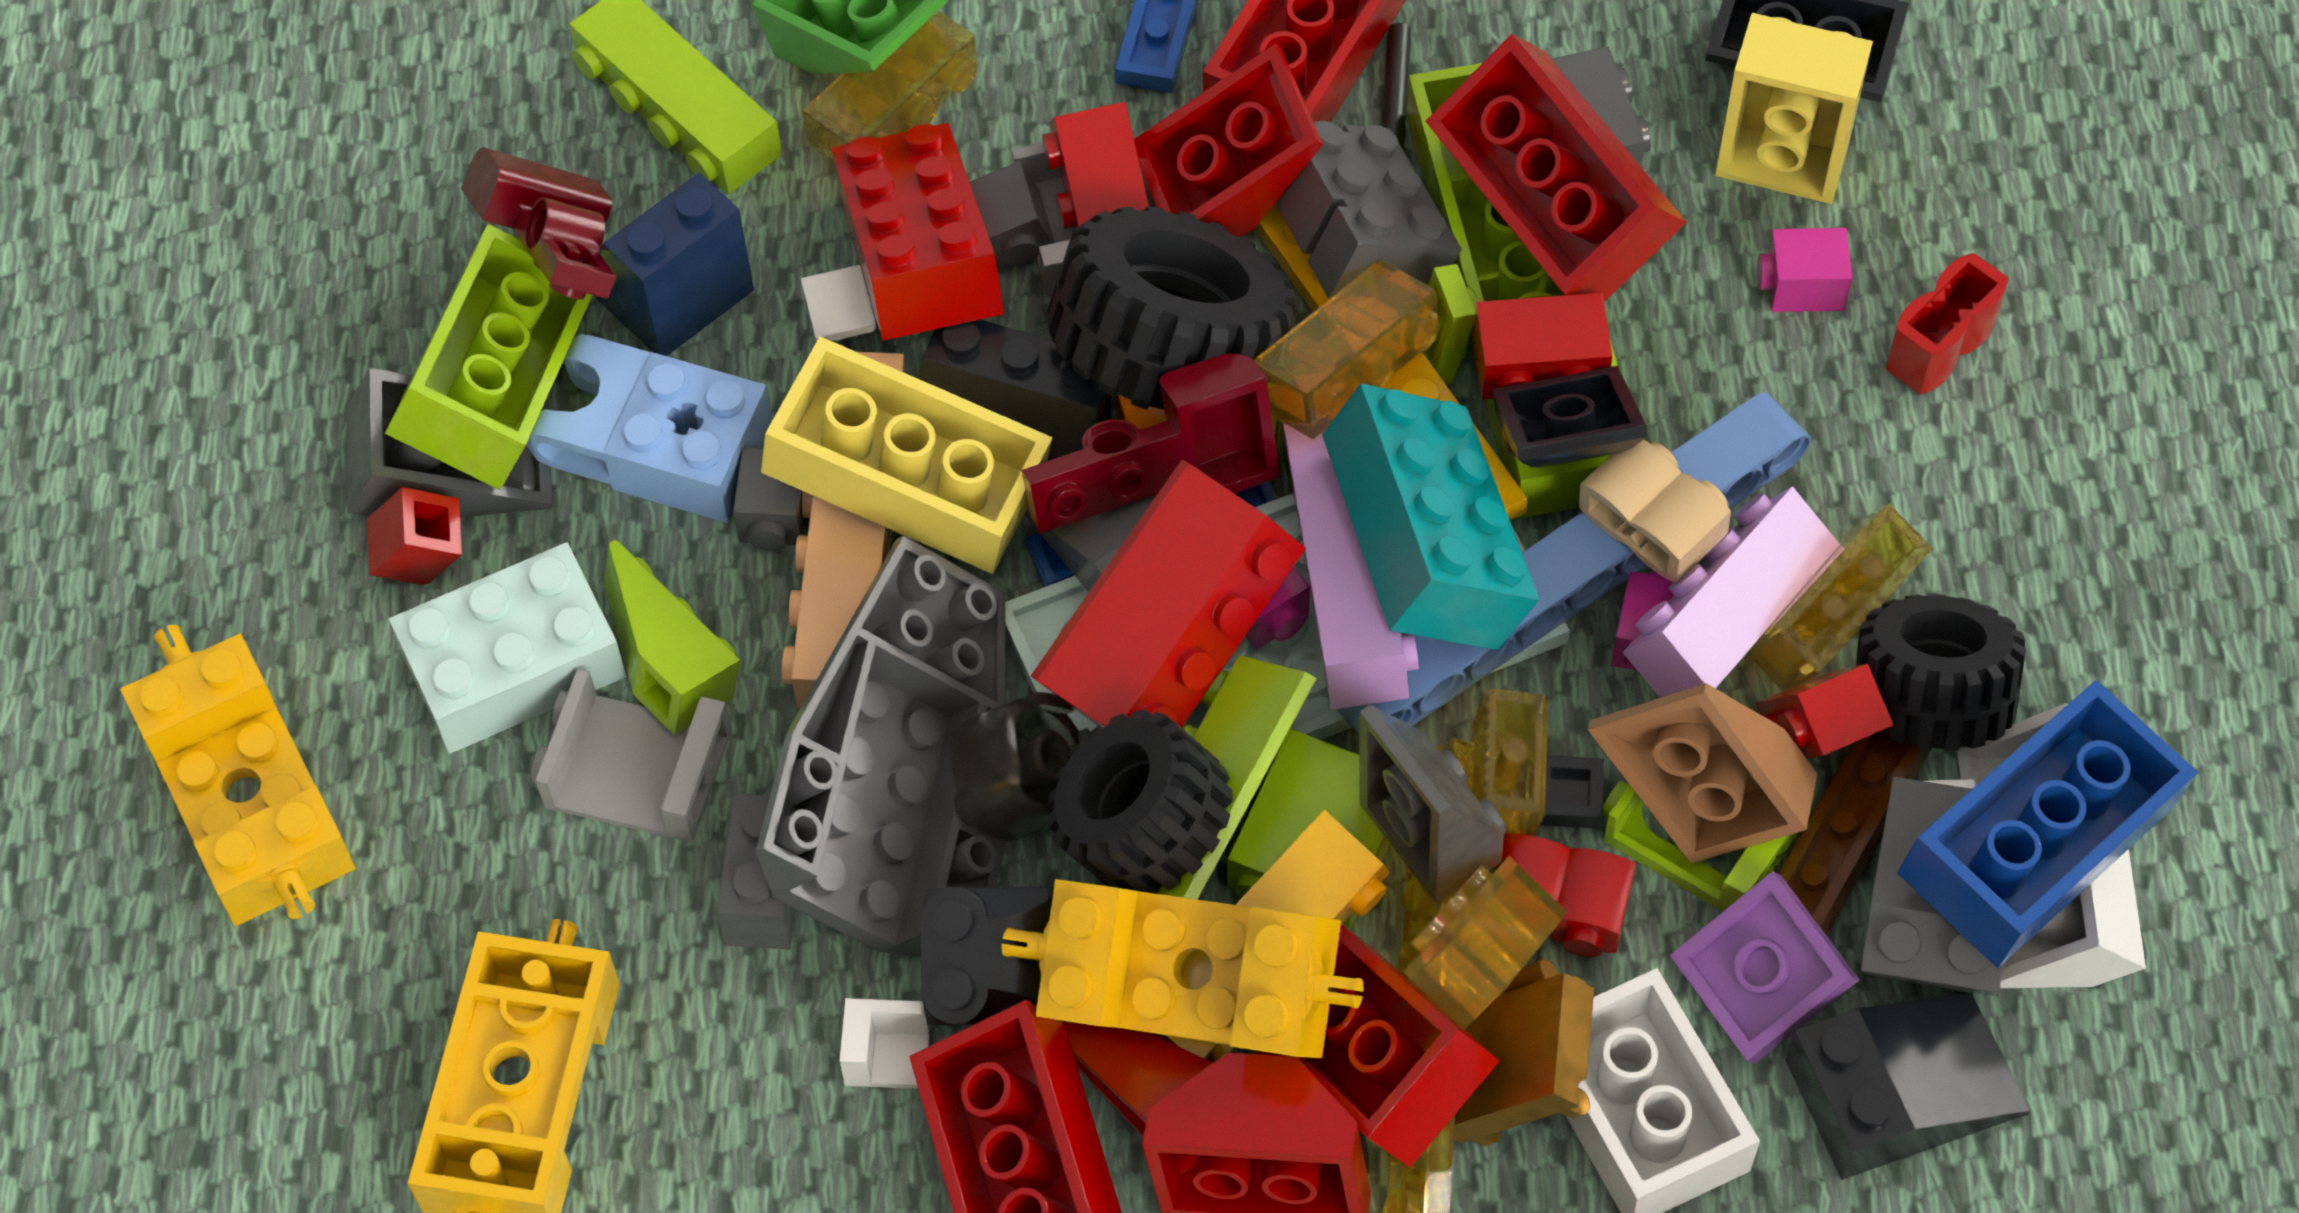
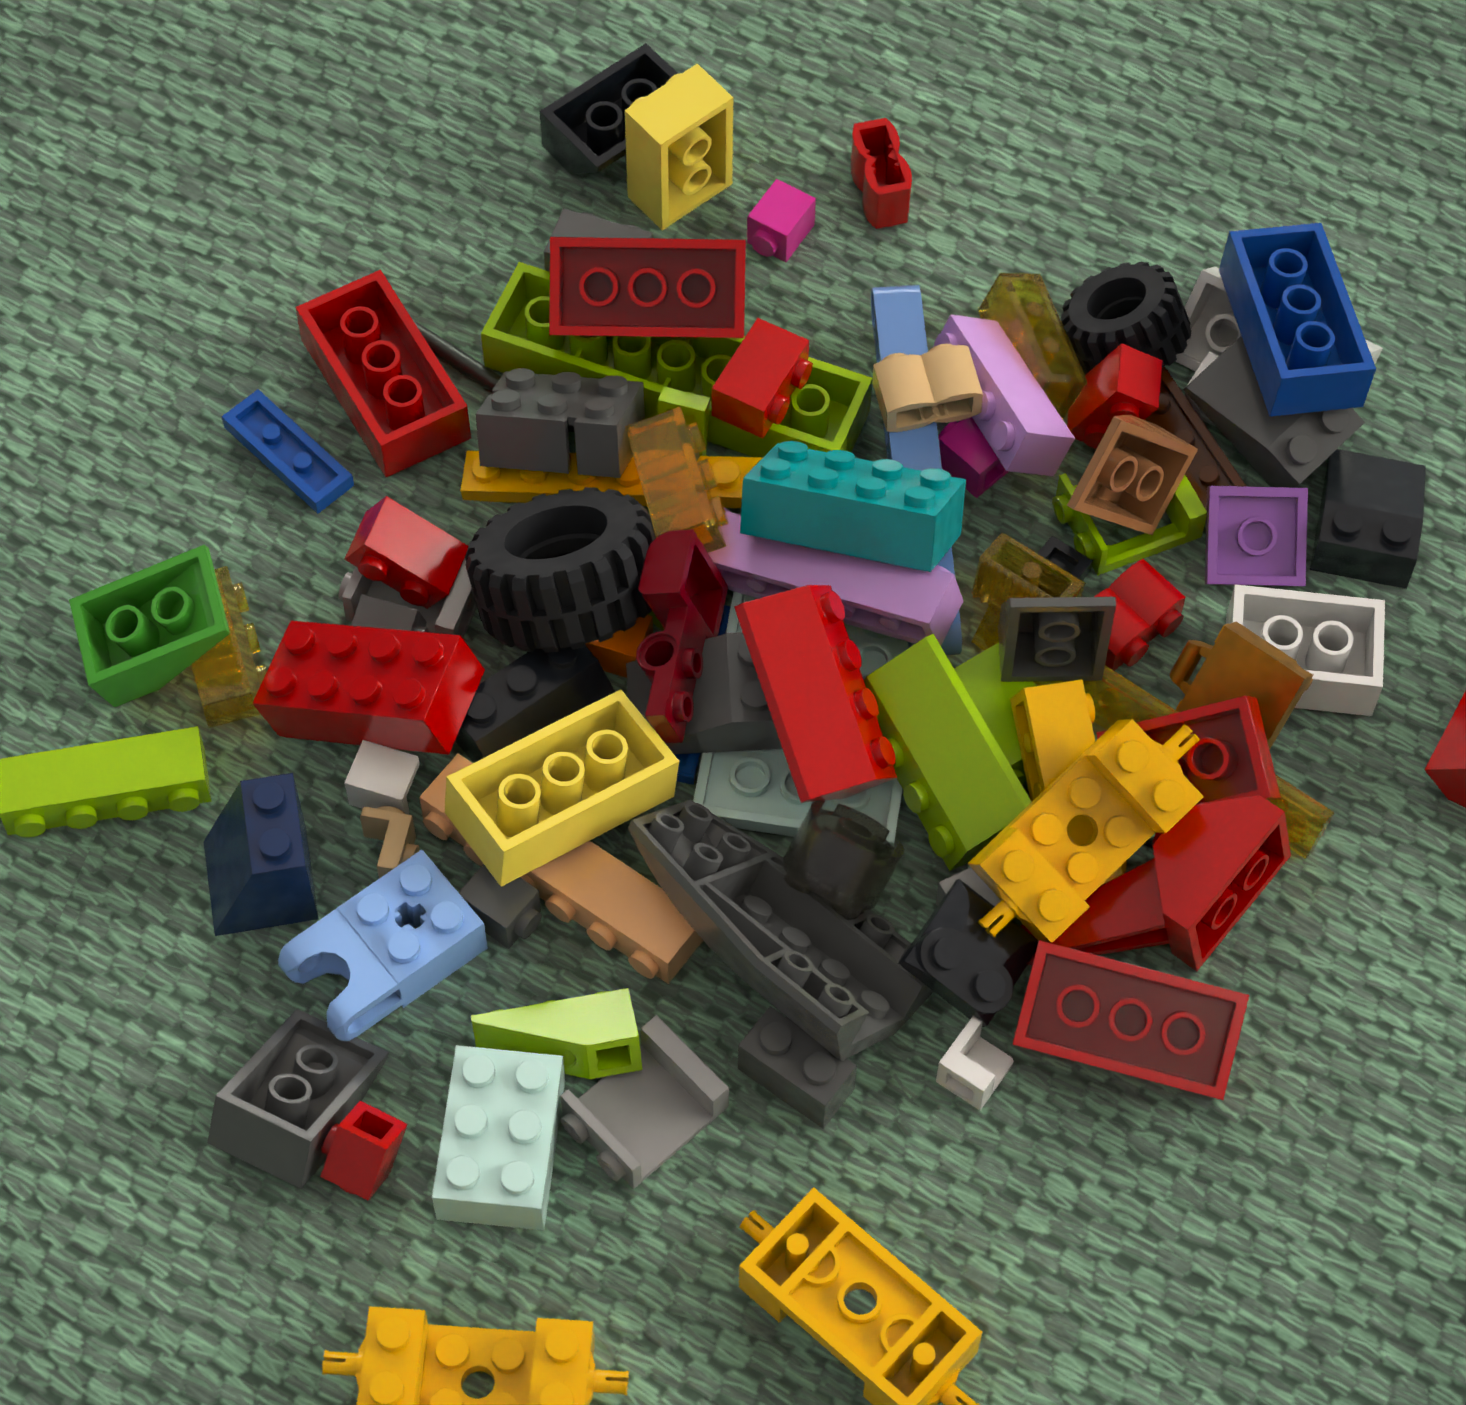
camera: 60 degrees left, 0 degrees up
(488, 362) = (266, 1009): lime brick -> none
(553, 215) = (178, 903): dark red plate -> none
(776, 364) = (397, 832): none -> tan bracket
(1140, 803) = (904, 787): black tyre -> none
(1232, 146) = (462, 457): red slope -> none
(1482, 940) = (1172, 658): clear yellow brick -> none
(1569, 418) = (836, 389): black slope -> none

